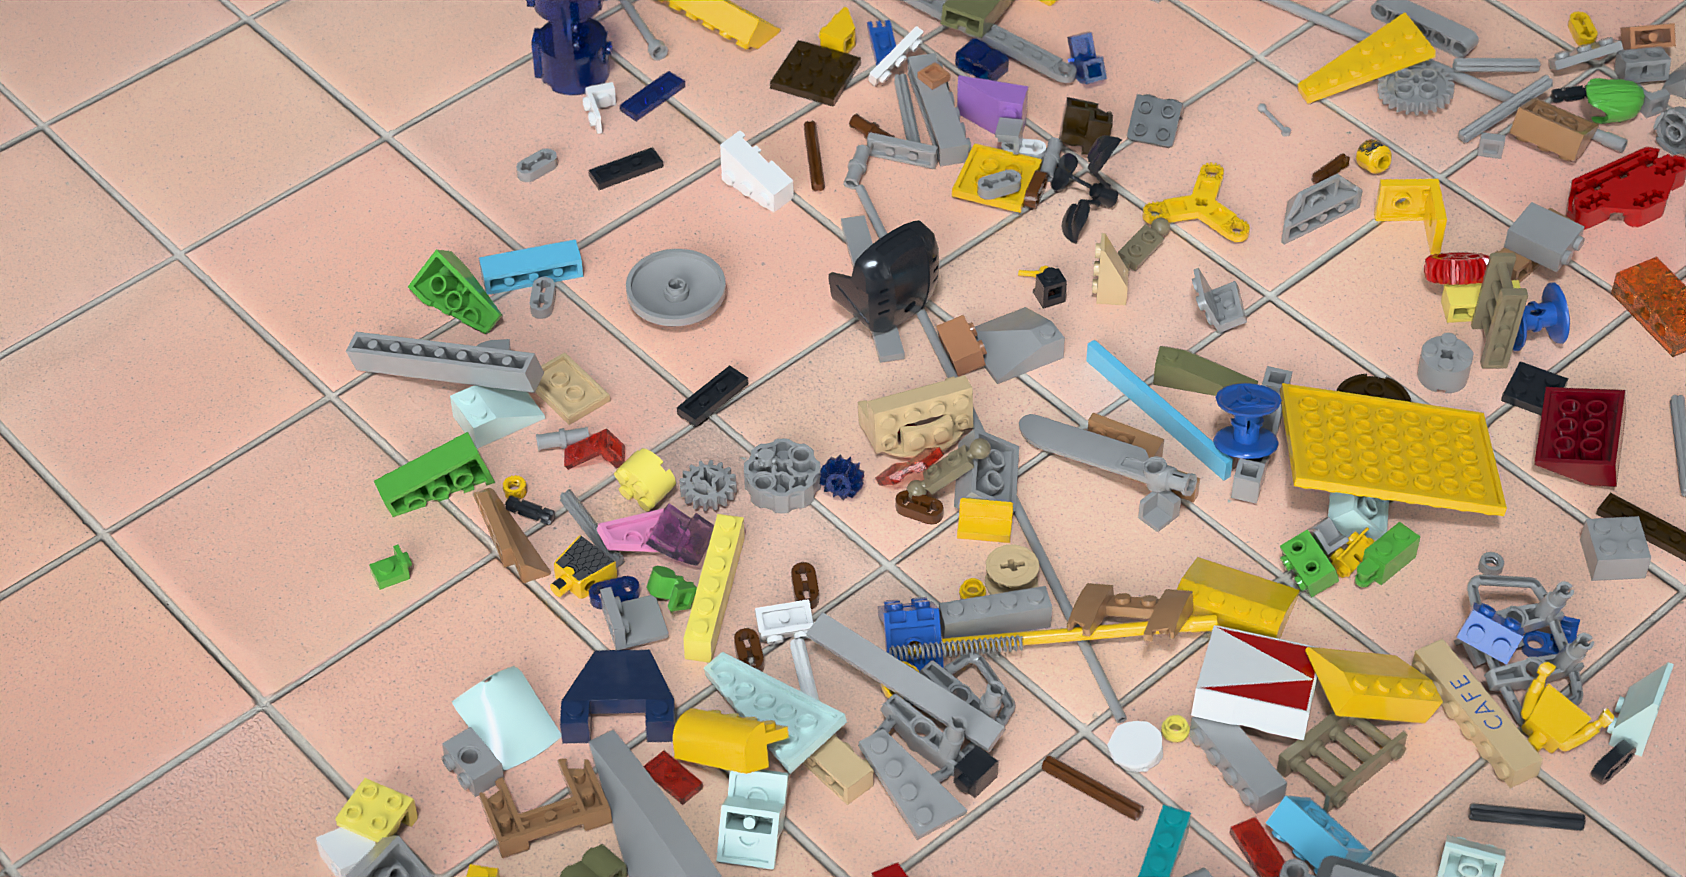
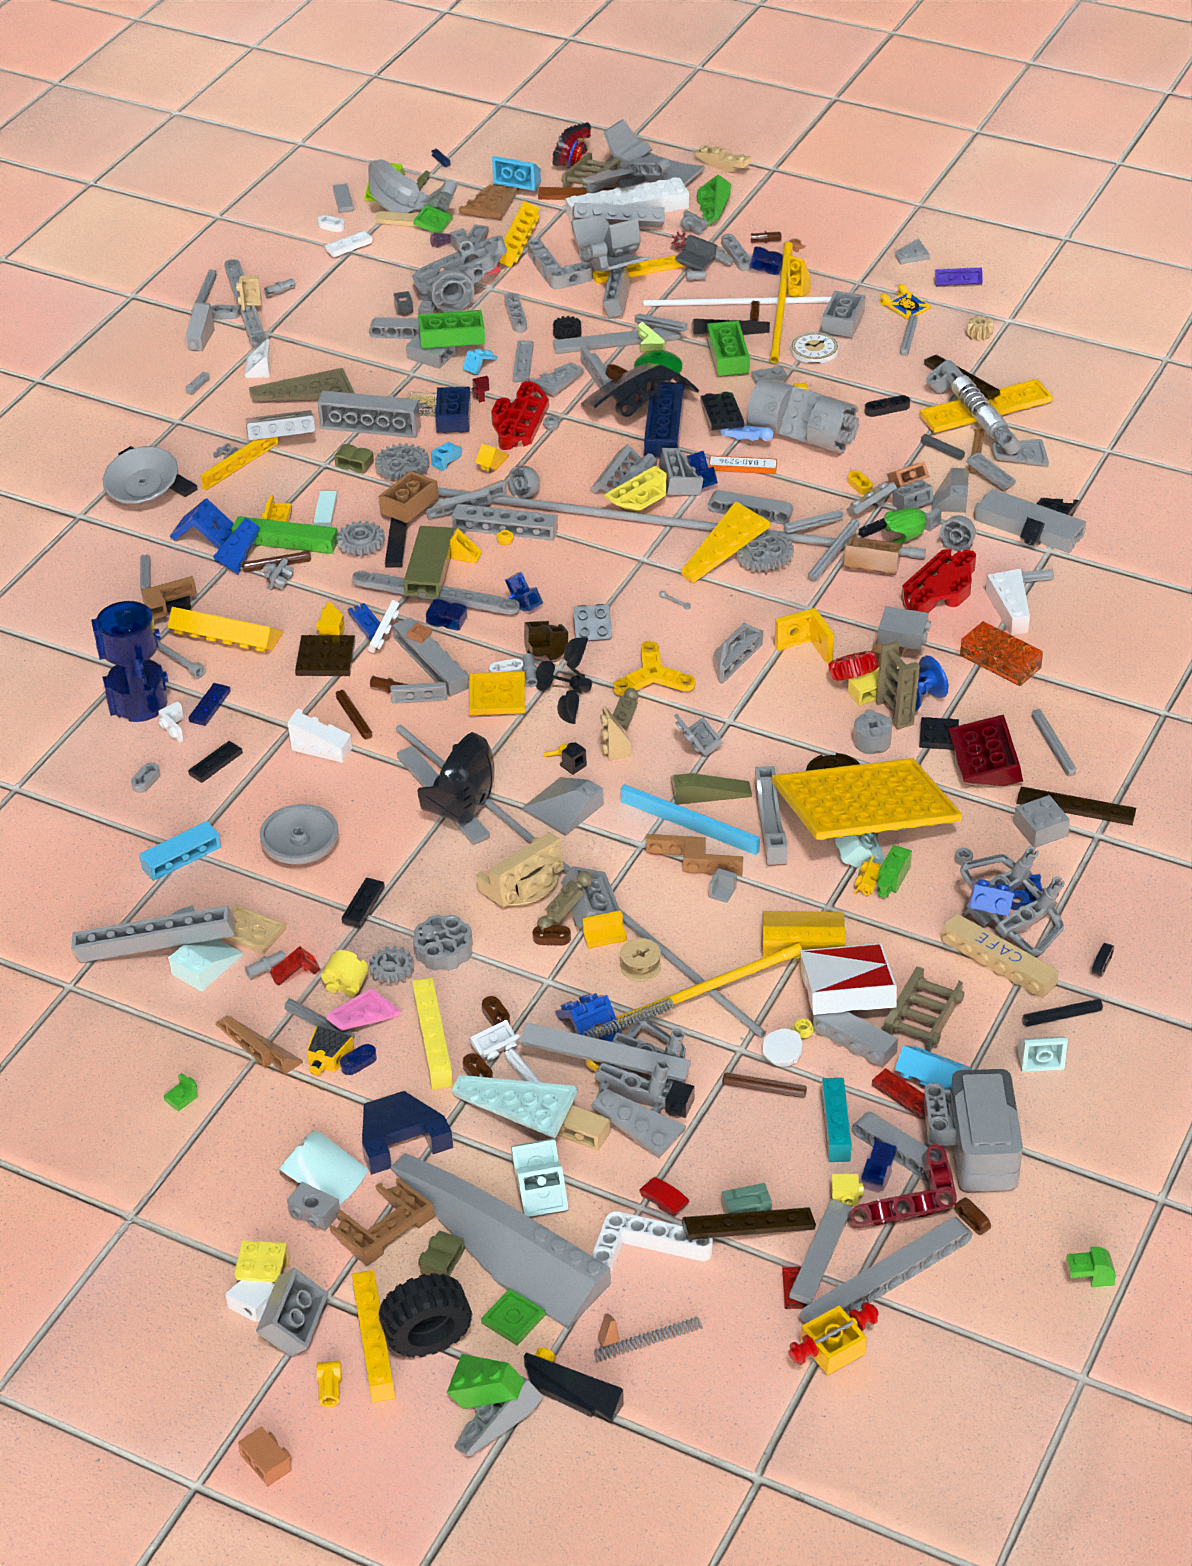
camera: 20 degrees left, 5 degrees down
(434, 476) = (183, 1017): bright green wedge -> none
(454, 290) = (129, 884): bright green wedge -> none
(514, 481) = (246, 1004): yellow axle -> none
(530, 510) = (265, 1021): black axle -> none
(547, 298) = (201, 869): light grey beam -> none
(633, 620) = (382, 1074): light grey bracket -> none
(667, 585) = (395, 1041): bright green leg -> none
(673, 777) = (467, 1170): clear red plate -> none
(681, 536) = (390, 1006): clear purple slope -> none
(725, 740) = (497, 1130): yellow brick -> none
(841, 477) = (488, 930): clear blue gear -> none
(857, 166) = (390, 713): light grey pin -> none
(906, 108) = (406, 662): light grey axle -> none
(919, 463) = (541, 902): clear red tile -> none
(961, 345) = (529, 814): nougat brick -> none
(972, 588) = (618, 980): yellow plate -> none
(988, 100) = (472, 642): medium lavender slope -> none
(996, 613) = (646, 988): light grey brick -> none
(999, 184) = (503, 696): light grey beam -> none
(1010, 131) = (494, 657): light grey panel -> none
(1036, 189) = (529, 693): reddish brown beam -> none
(1105, 454) = (669, 859): light grey piece -> none
(1164, 614) = (711, 961): medium nougat wedge -> none
(1246, 435) = (762, 819): blue piece -> none
(1309, 564) = (843, 891): bright green brick -> none
(1327, 535) = (846, 871): light grey panel -> none
(1331, 168) = (731, 623): reddish brown axle -> none
(1373, 156) = (758, 606): yellow head -> none
(1374, 685) = (927, 957): yellow slope -> none
(1491, 145) = (835, 577): light grey plate -> none
(1553, 719) = (1054, 943): yellow torso -> none
(1639, 709) = (1107, 918): light aqua slope -> none

